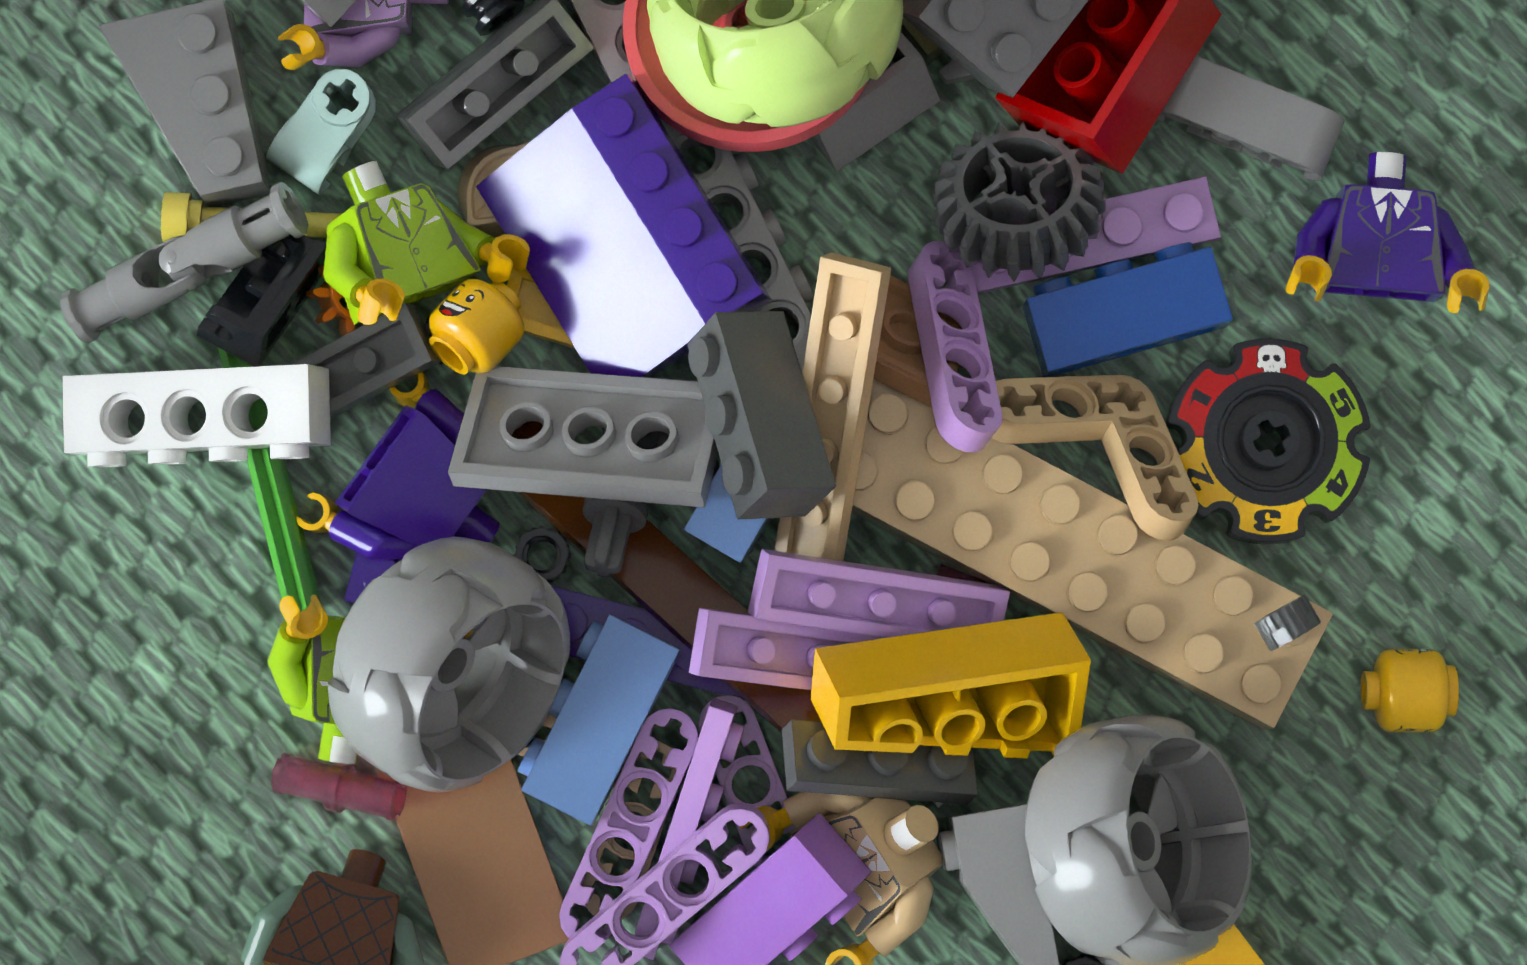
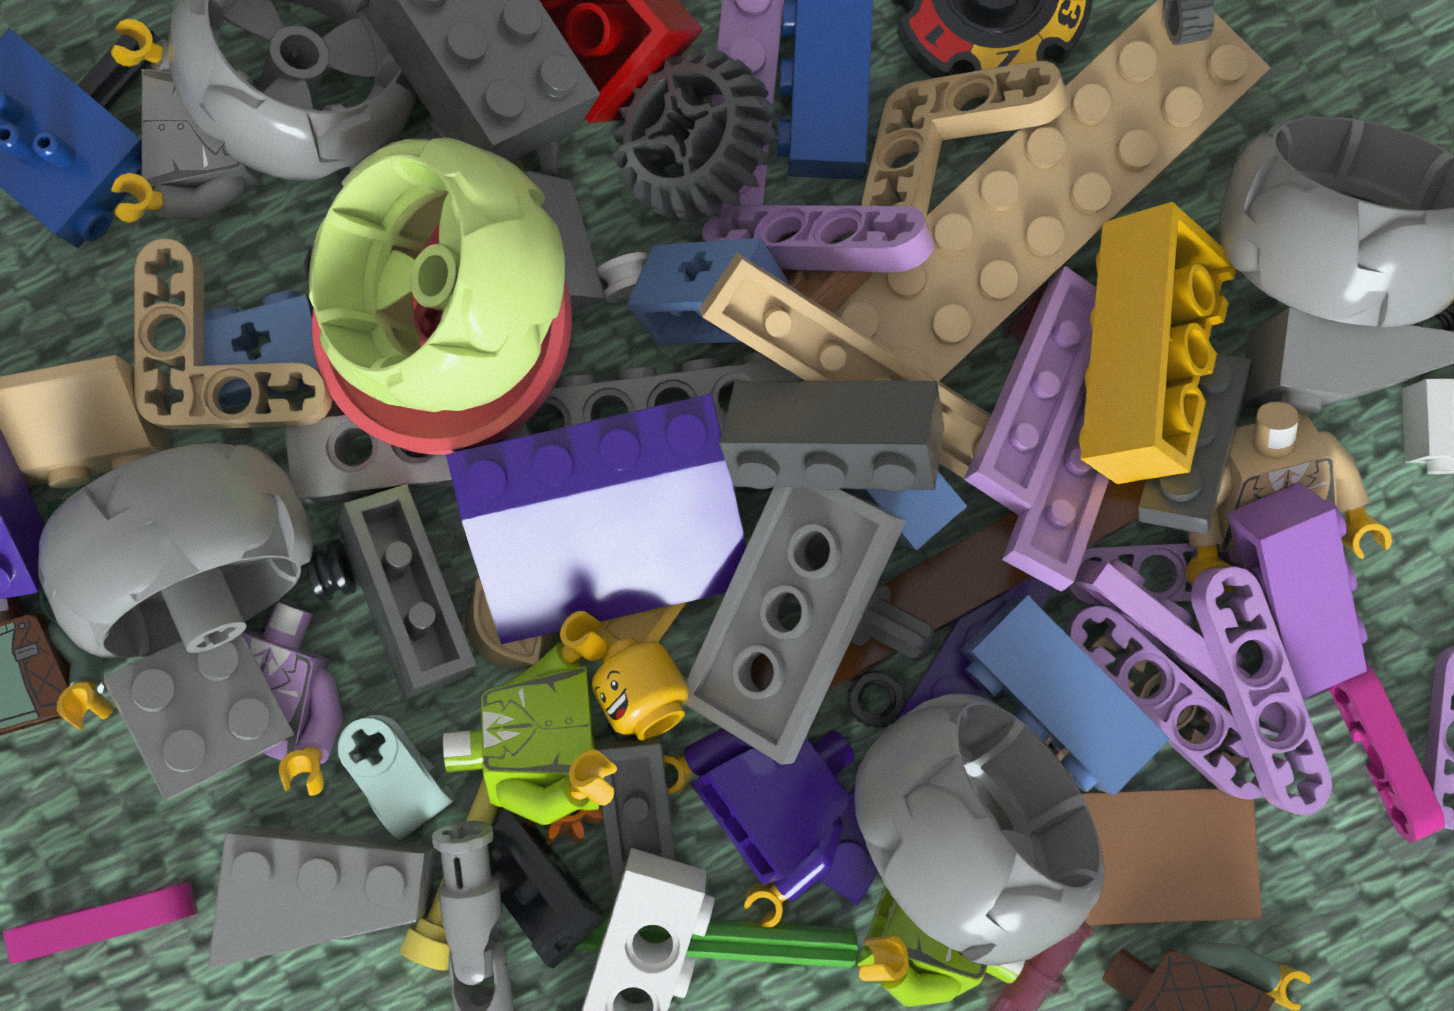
camera: 70 degrees left, 0 degrees up
(866, 185) = (622, 275): none -> white bush
(878, 233) = (680, 279): none -> medium blue brick

